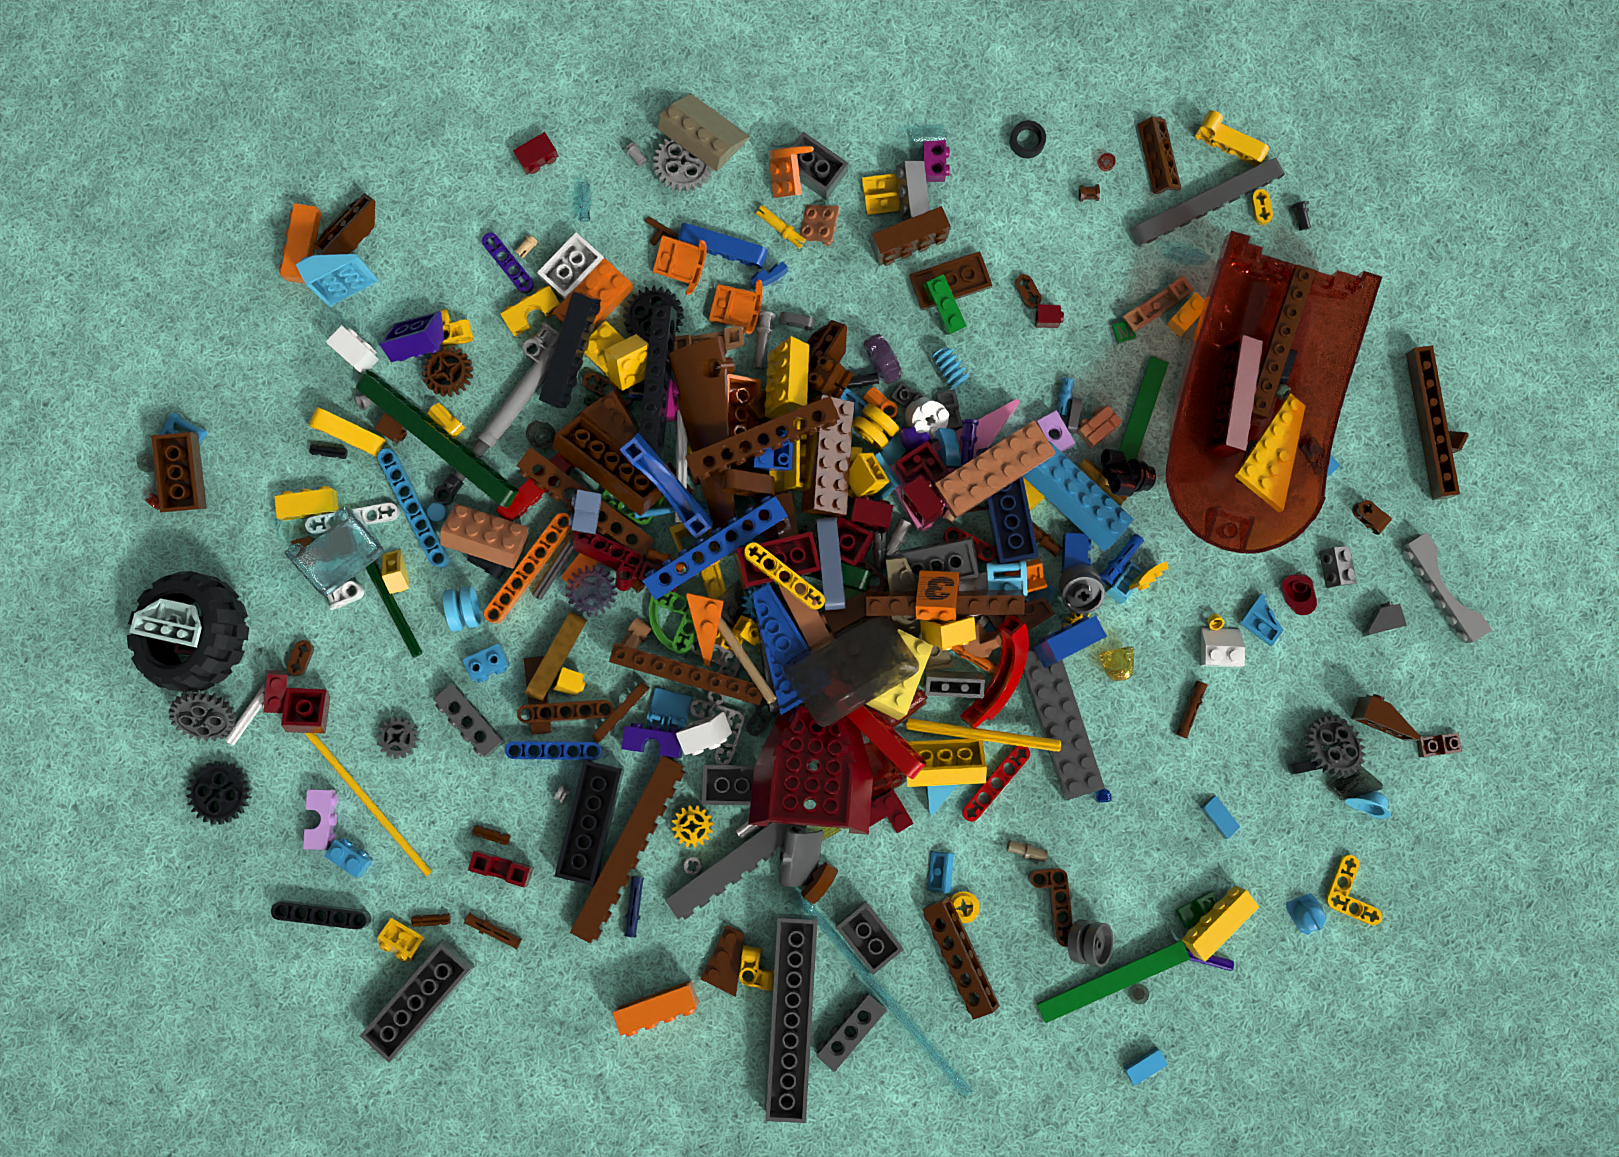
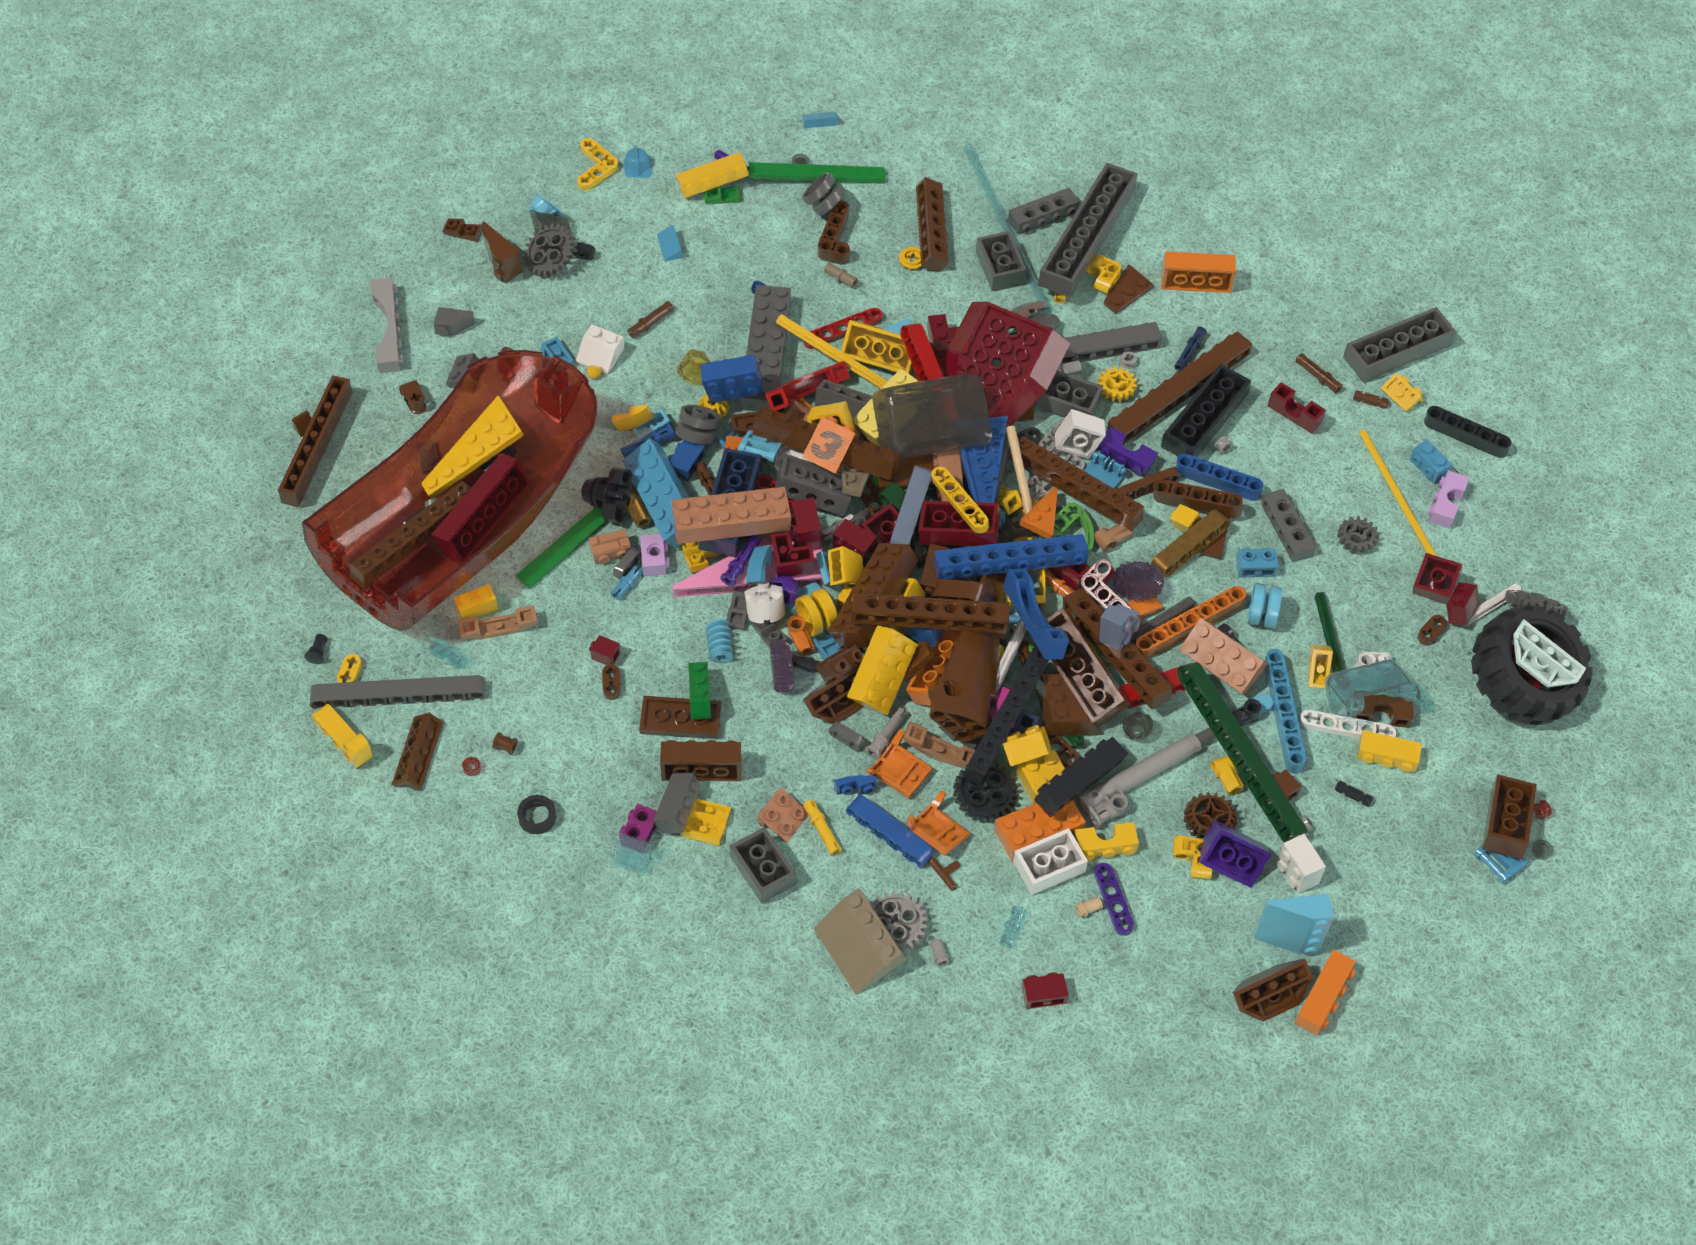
camera: 160 degrees left, 25 degrees down
(227, 807) = (1531, 550): black gear -> none
(346, 431) = (1334, 797): yellow beam -> none
(491, 835) = (1297, 439): reddish brown axle -> none
(785, 170) = (796, 861): orange piece -> none
(940, 872) = (920, 287): dark azure slope -> none
(1123, 332) = (543, 616): green tile -> none

